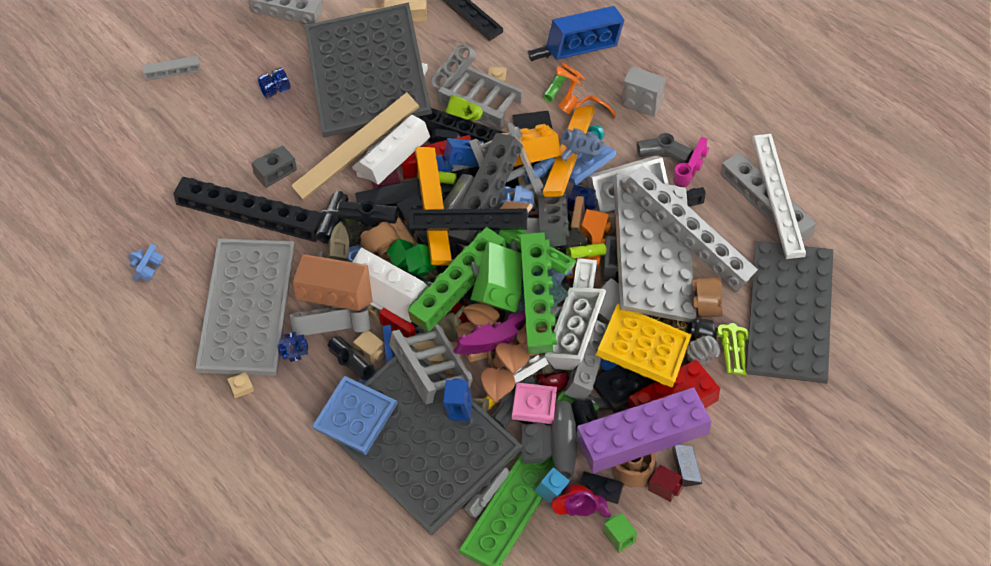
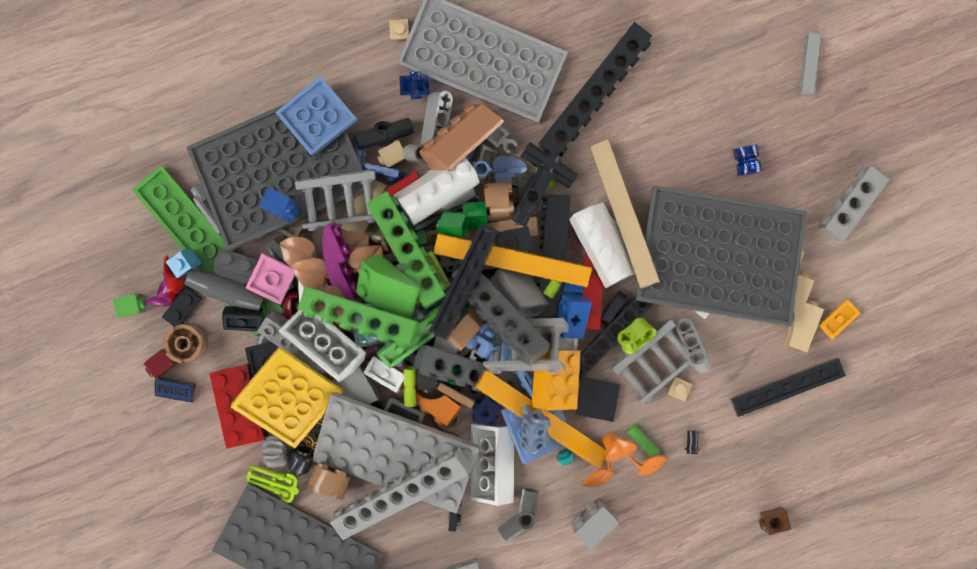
camera: 115 degrees right, 35 degrees up
(274, 166) = (639, 141): dark grey brick -> none
(339, 243) = (514, 161): dark tan plate -> none
(585, 32) = (691, 496): blue brick -> none
(643, 430) = (196, 360): medium lavender brick -> none
(685, 172) = (493, 537): dark pink plate -> none

